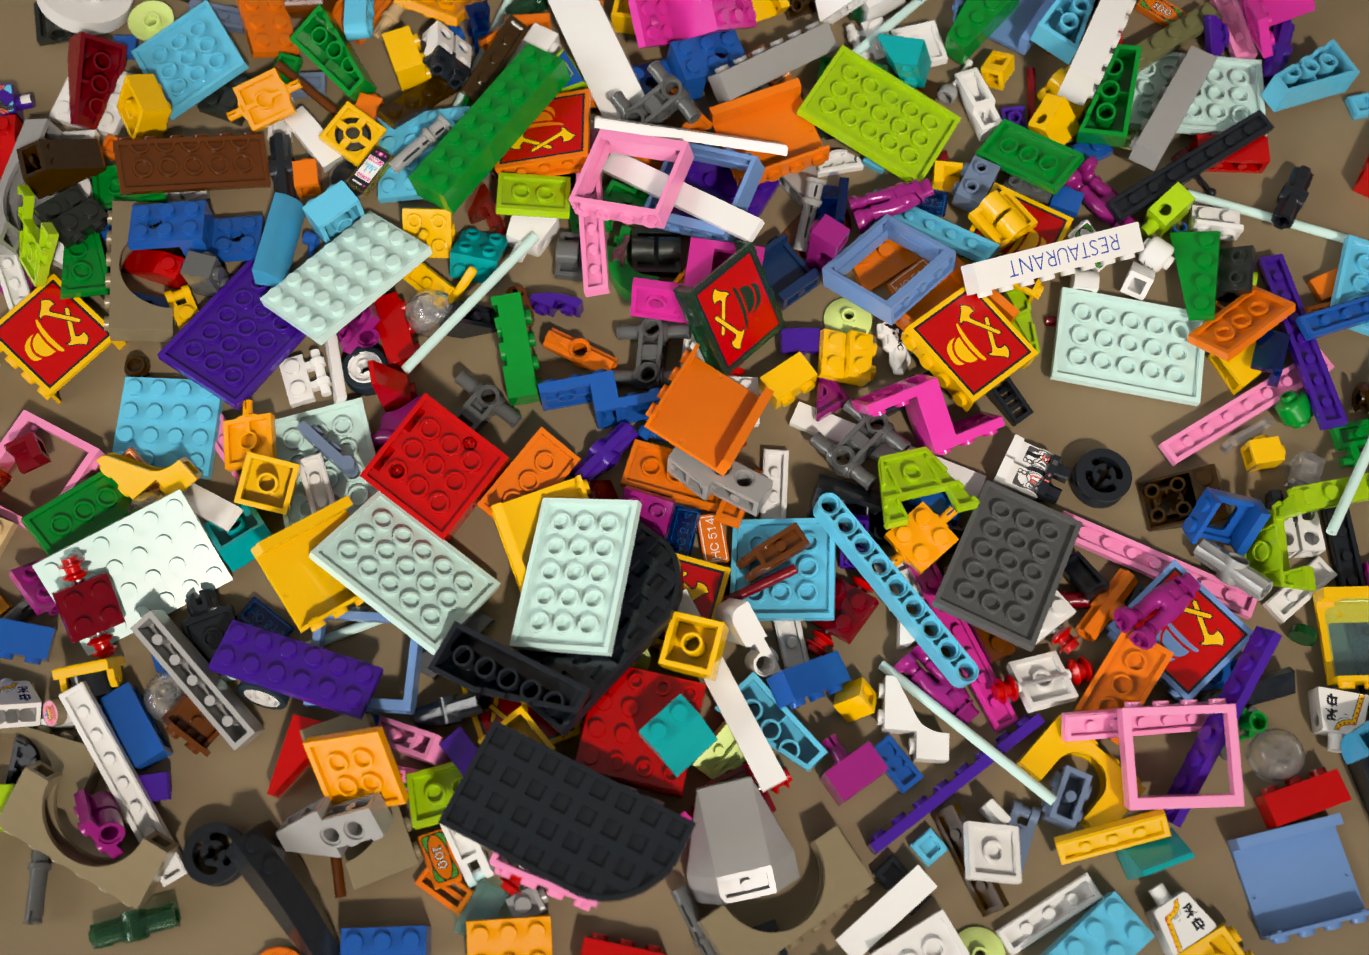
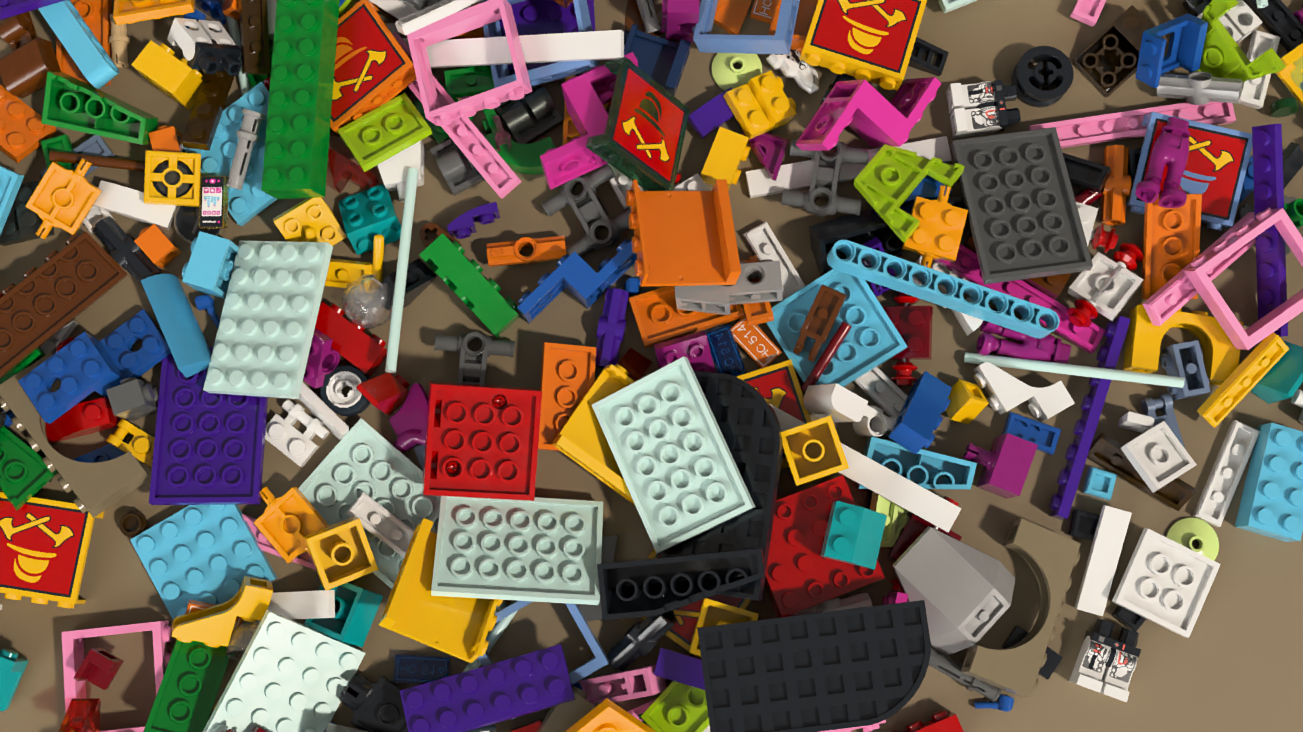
camera: 35 degrees left, 10 degrees up
(329, 449) = (369, 485): sand blue plate -> none

